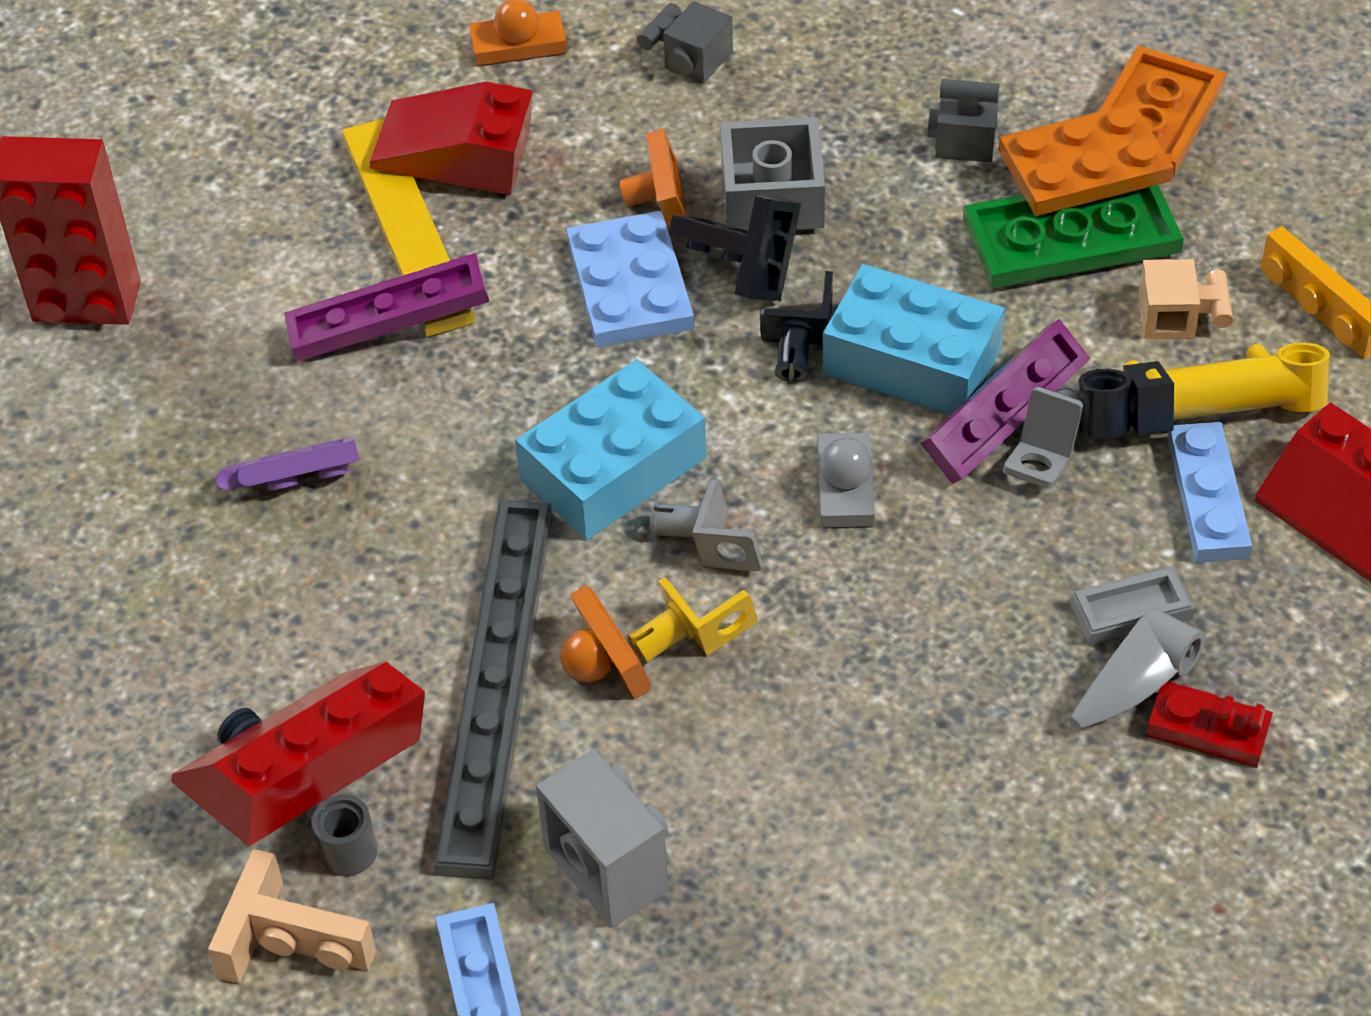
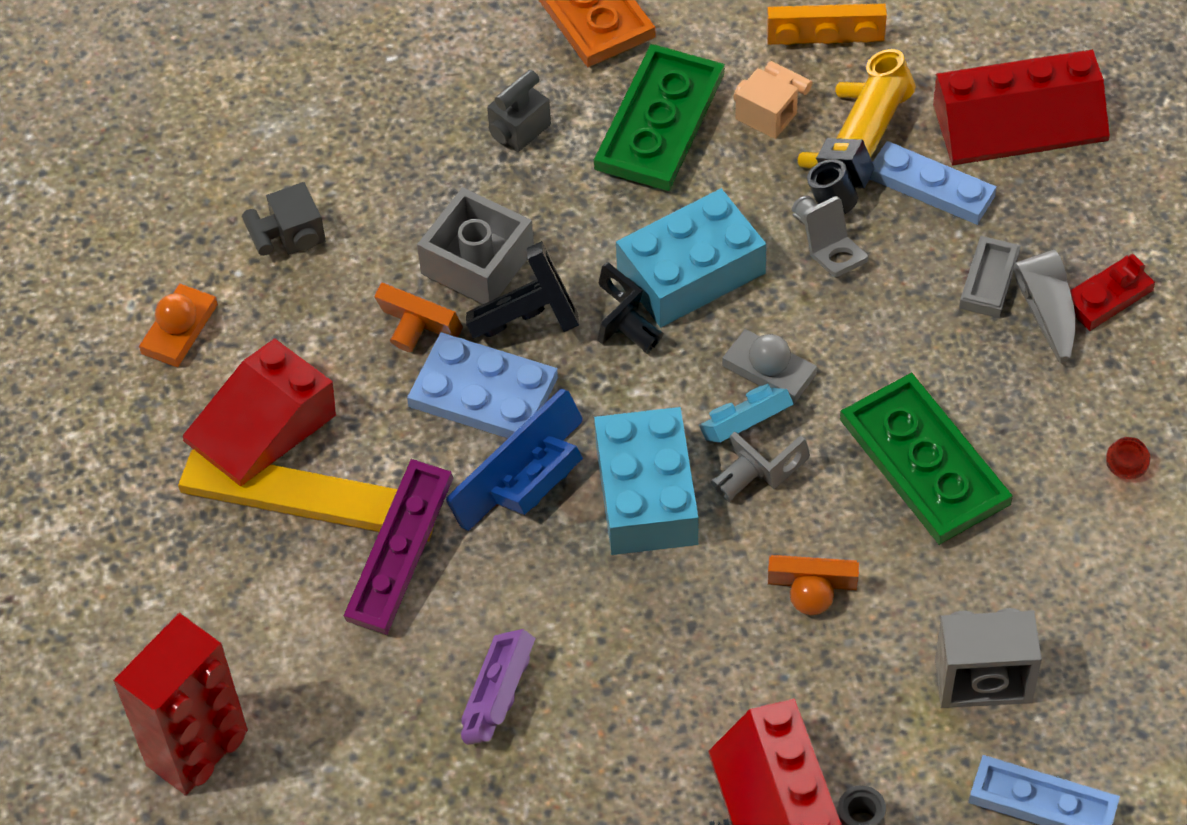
camera: 55 degrees left, 5 degrees up
(494, 692) = (789, 664): dark grey tile -> none
(554, 347) = (523, 465): none -> blue bracket
(682, 622) = (826, 521): yellow bracket -> none
(782, 491) = (761, 404): none -> medium azure plate
(836, 667) = (925, 458): none -> green plate
(995, 852) = (1128, 458): none -> clear red plate
(1003, 401) = (784, 247): magenta plate -> none
(1085, 159) = (615, 70): orange plate -> none

